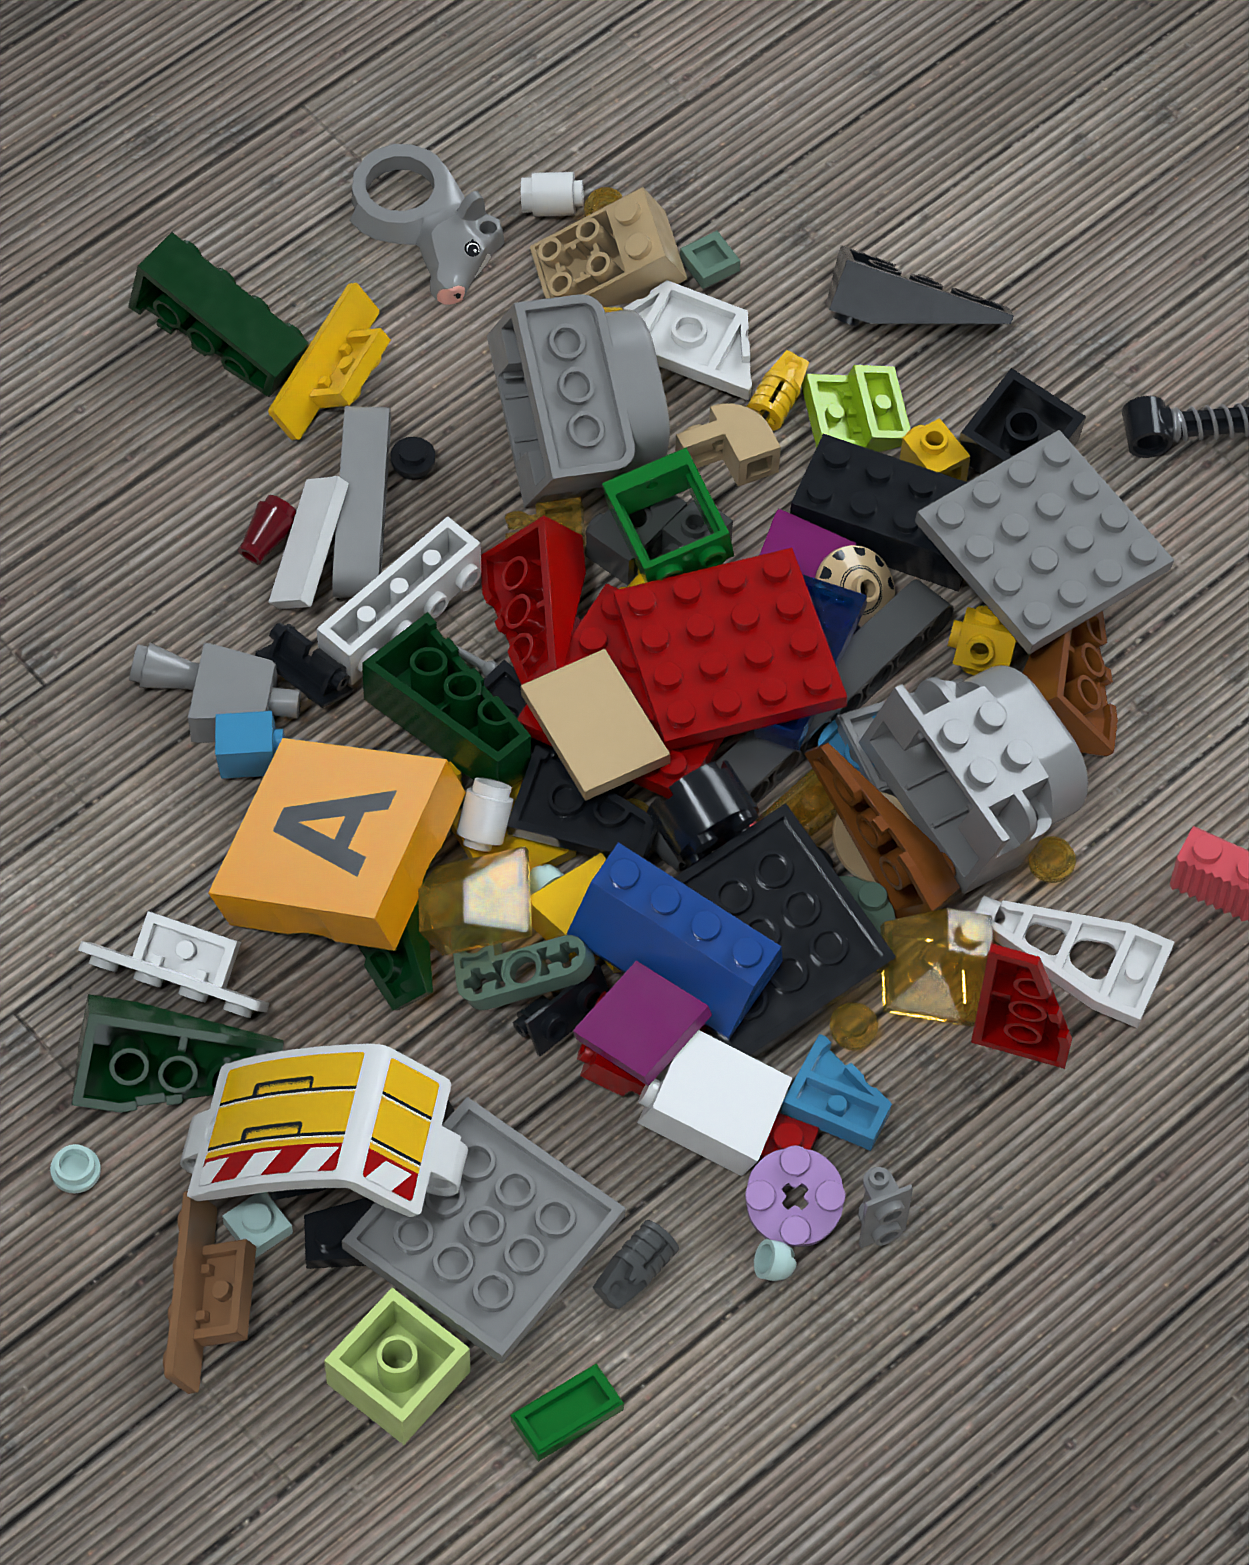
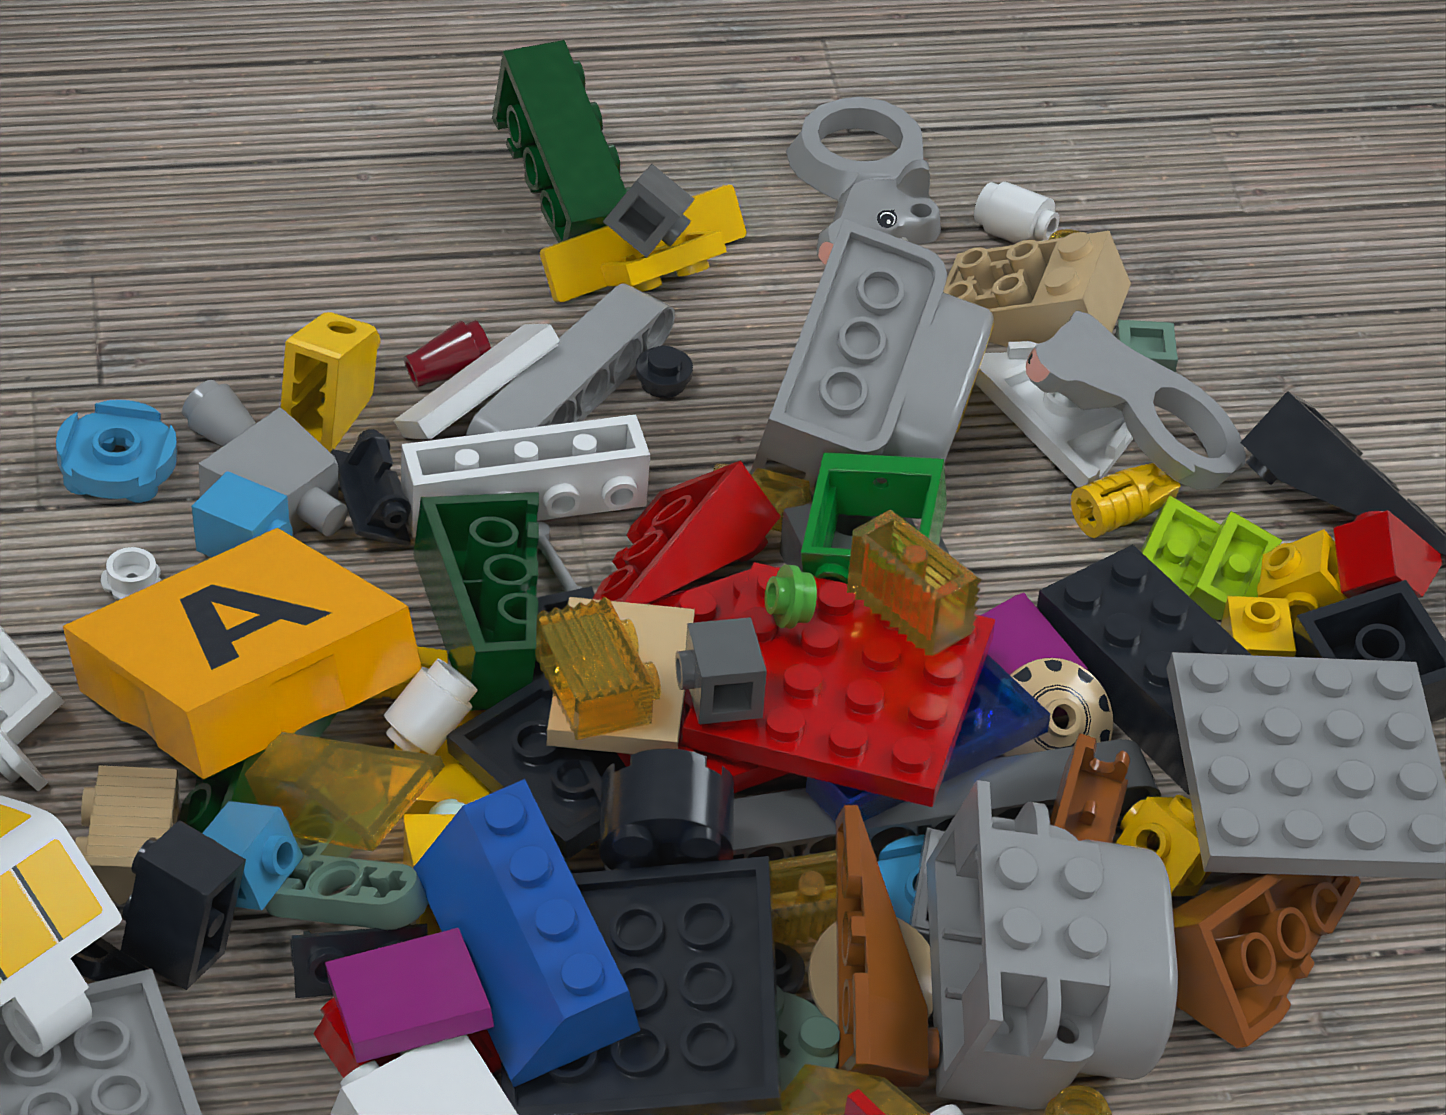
camera: 30 degrees right, 15 degrees down
(114, 757) = (93, 469): none -> dark azure plate
(197, 813) = (129, 572): none -> white plate
(210, 577) = (331, 360): none -> yellow torso
(331, 343) = (651, 212): none -> dark grey brick
(359, 1004) = (121, 816): none -> tan brick
(448, 1037) = (181, 903): none -> black brick
(454, 984) = (265, 841): none -> dark azure brick
(591, 734) = (596, 668): none -> clear yellow brick
(671, 610) = (791, 596): none -> bright green plate
(674, 690) = (723, 670): none -> dark grey brick
(725, 308) = (1103, 372): none -> light grey animal
(738, 438) = (1033, 510): tan brick -> none
(744, 560) = (912, 583): none -> clear yellow brick
(924, 644) = (1090, 793): none -> dark orange hinge
(938, 392) = (1302, 573): none -> yellow brick
(980, 356) = (1381, 552): none -> red slope

